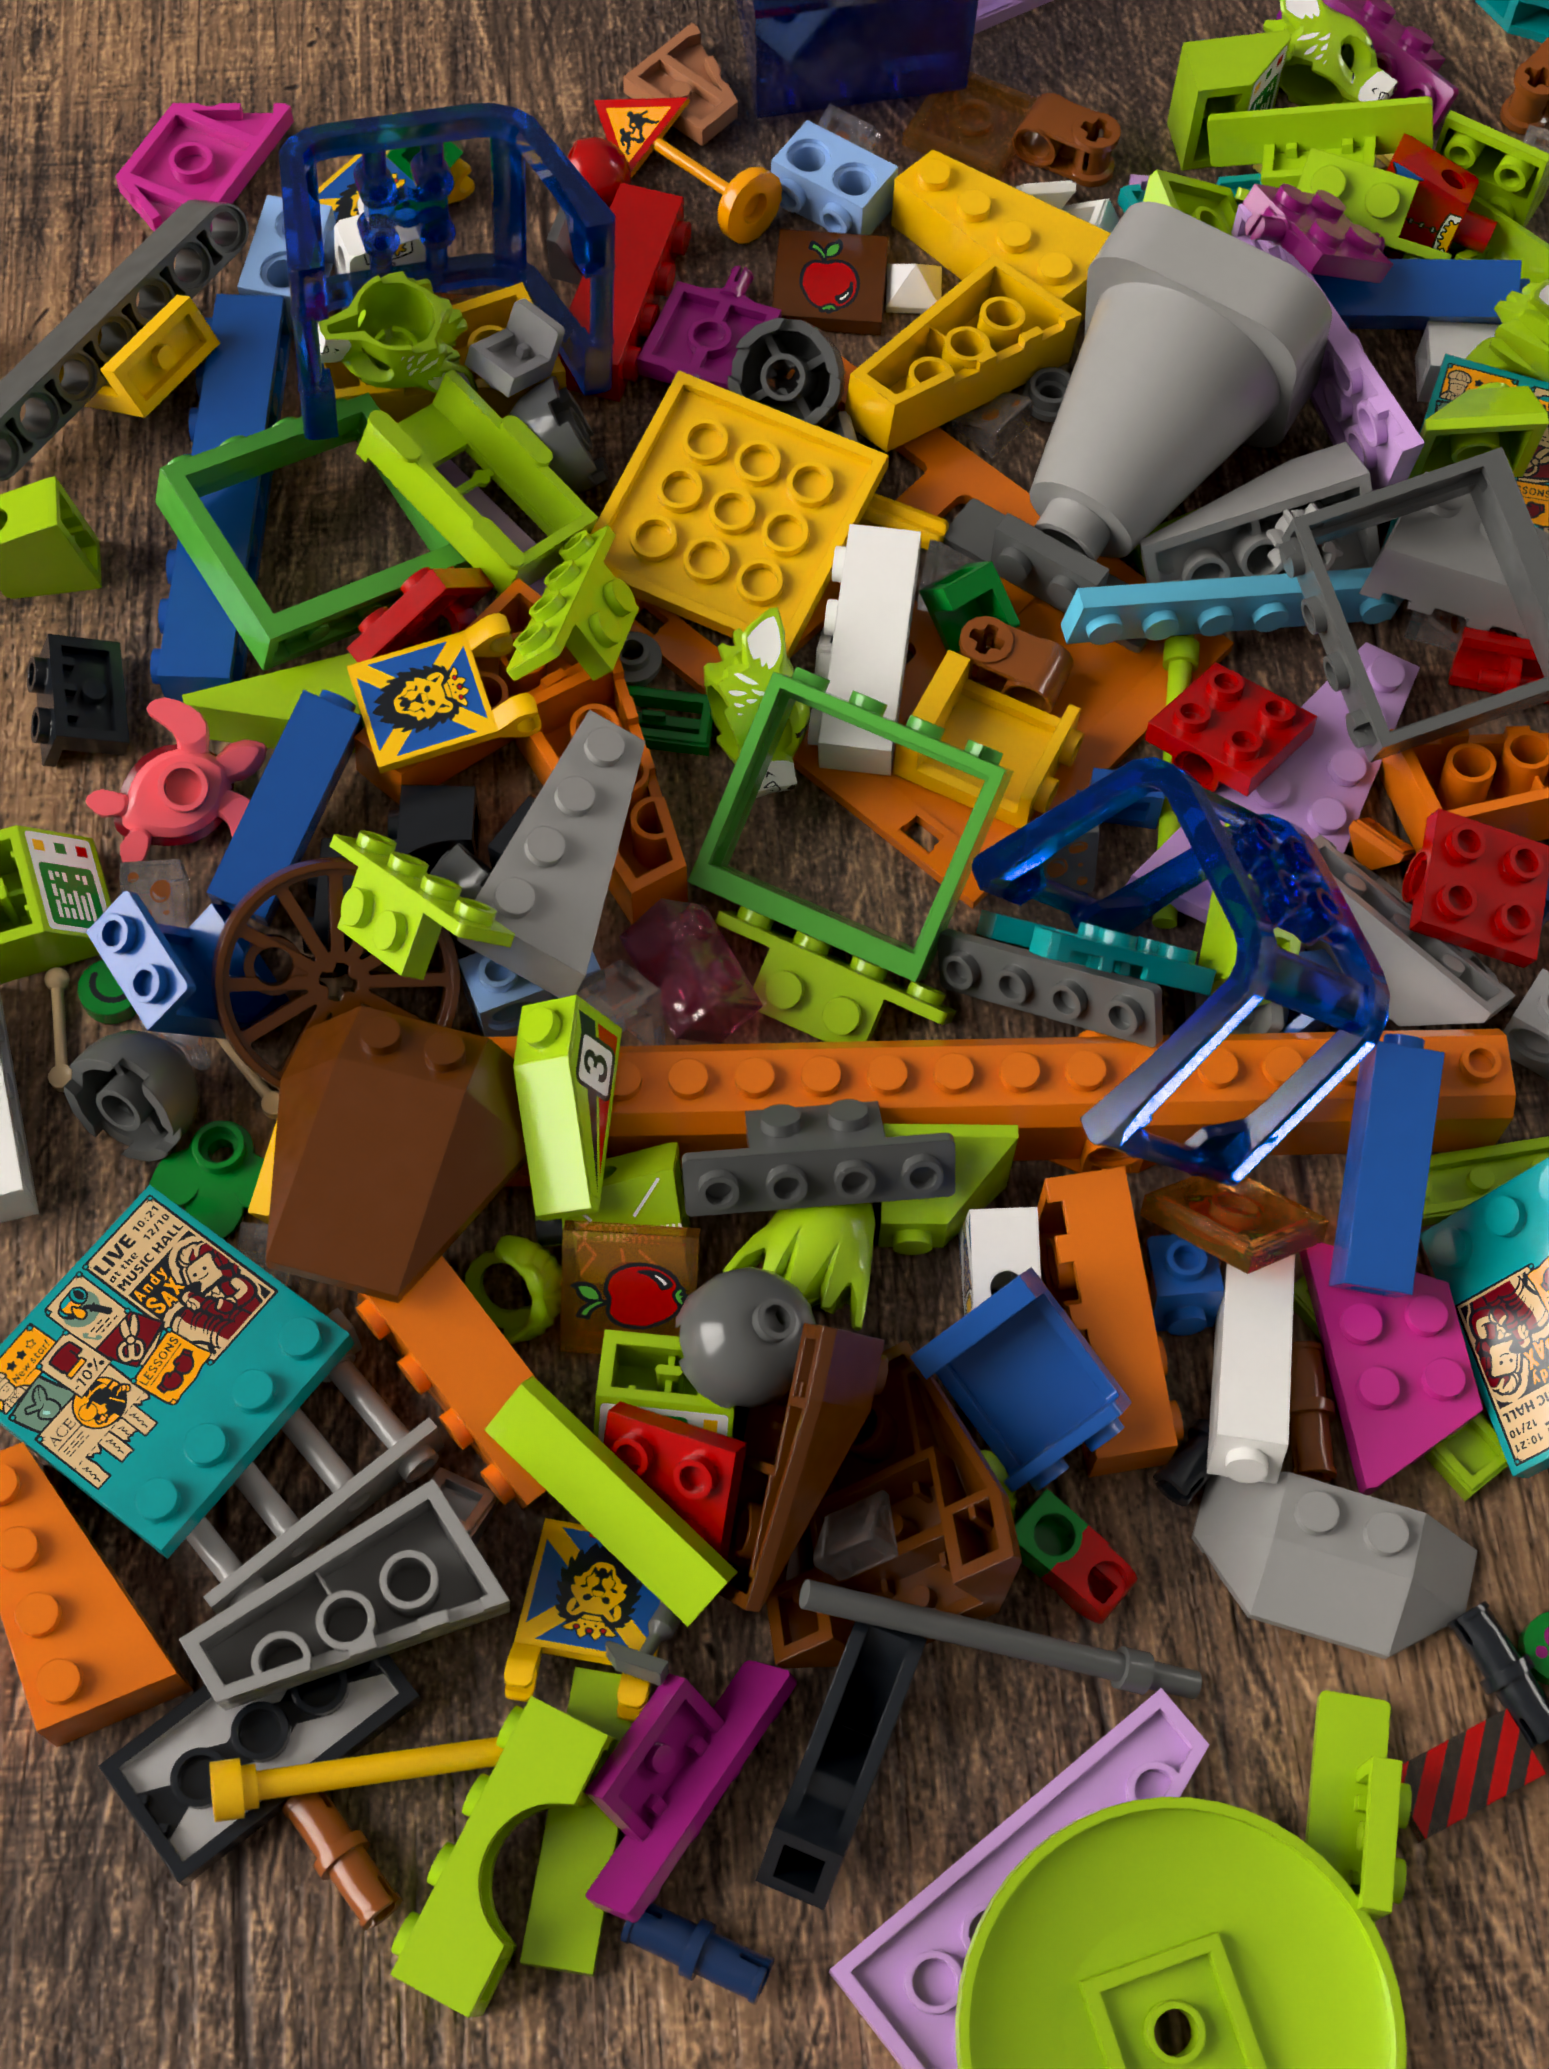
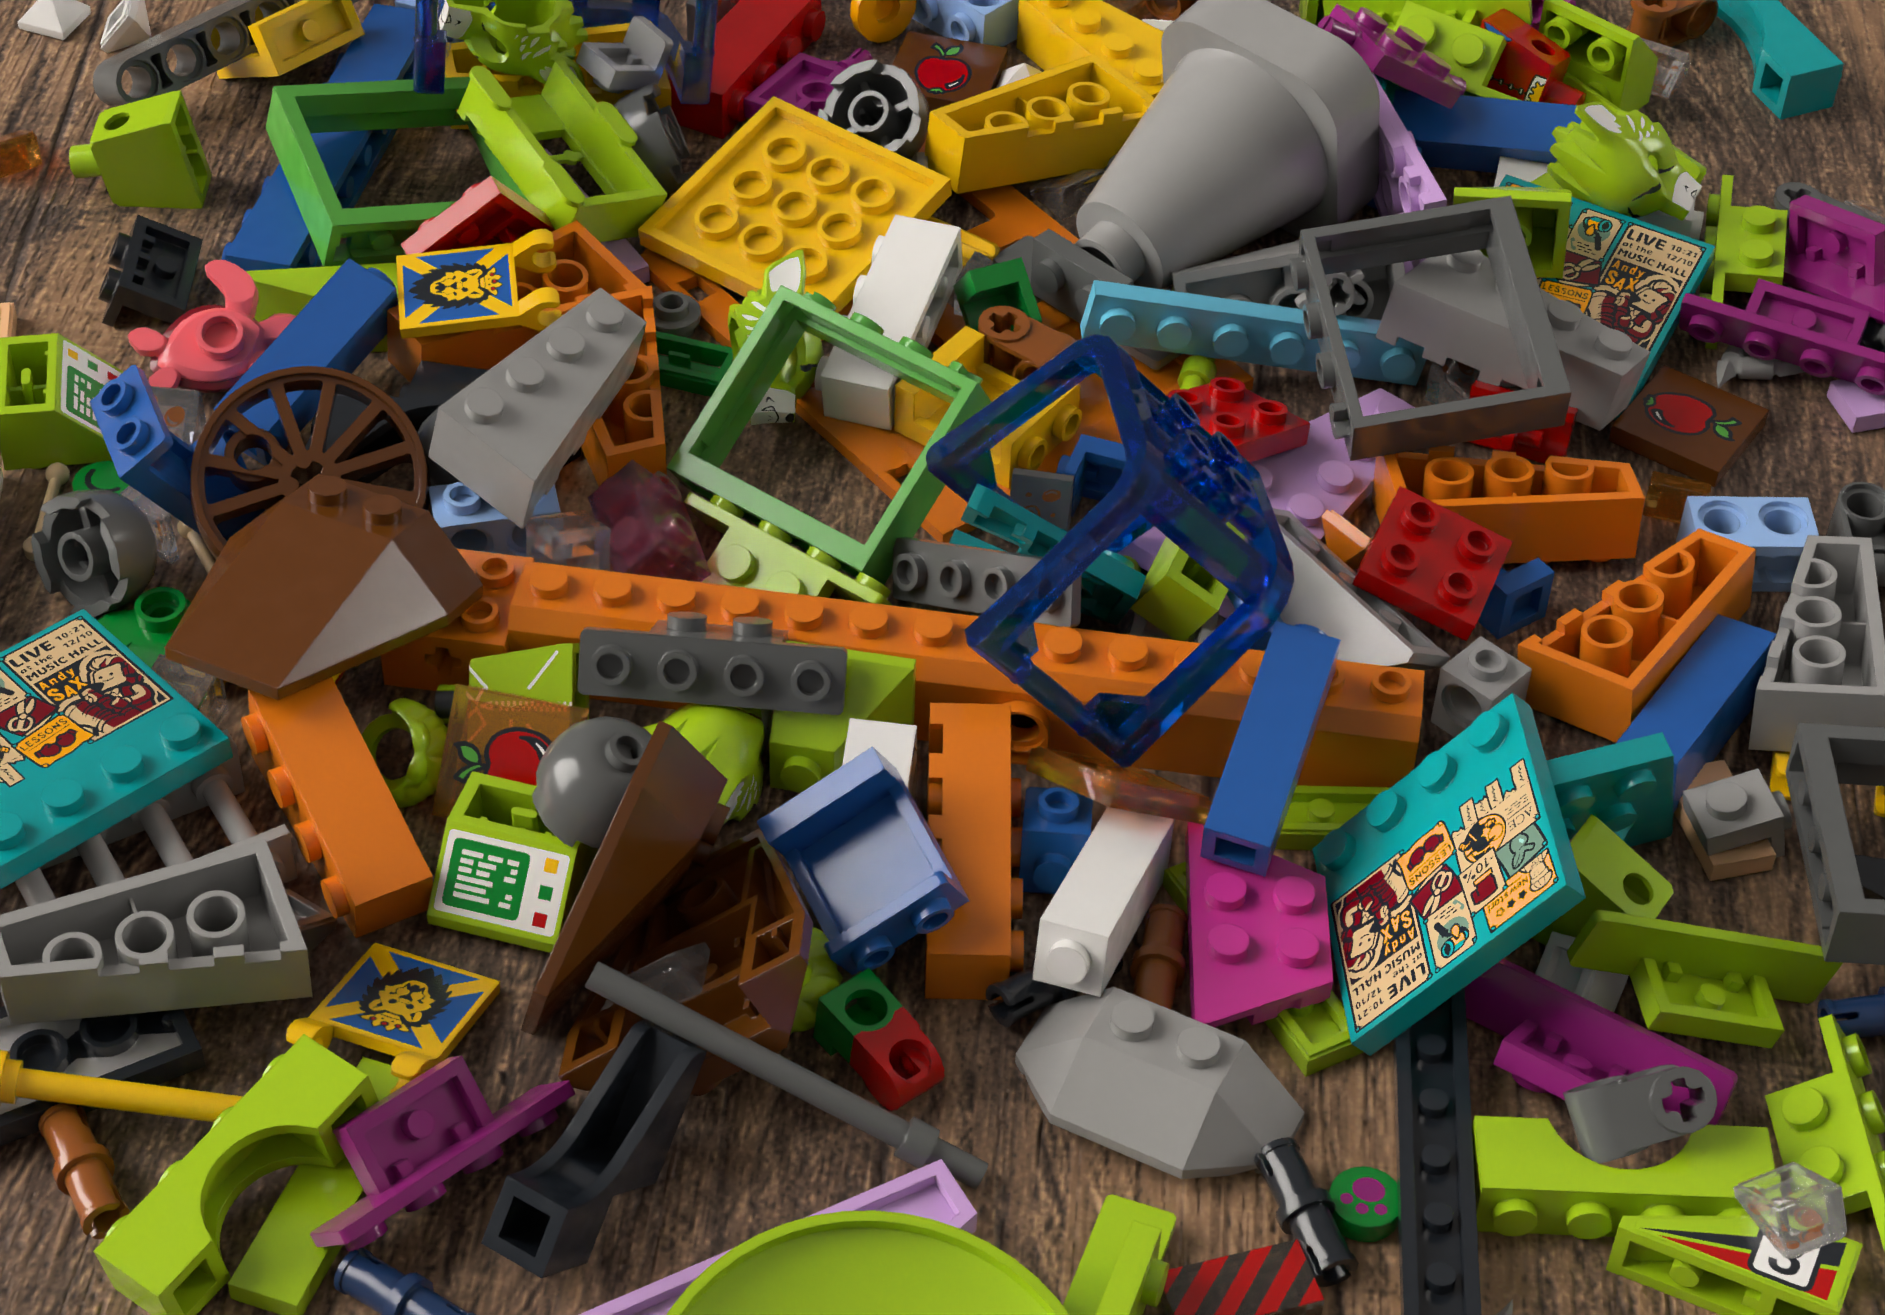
camera: 10 degrees right, 20 degrees down
(401, 909) = (375, 394): lime bracket -> none
(565, 1102) = (488, 575): lime slope -> none
(578, 610) = (627, 239): lime bracket -> none
(610, 1500) = (434, 900): lime tile -> none
(642, 1662) = (462, 1022): dark grey piece -> none
(684, 1465) = (493, 907): red plate -> none

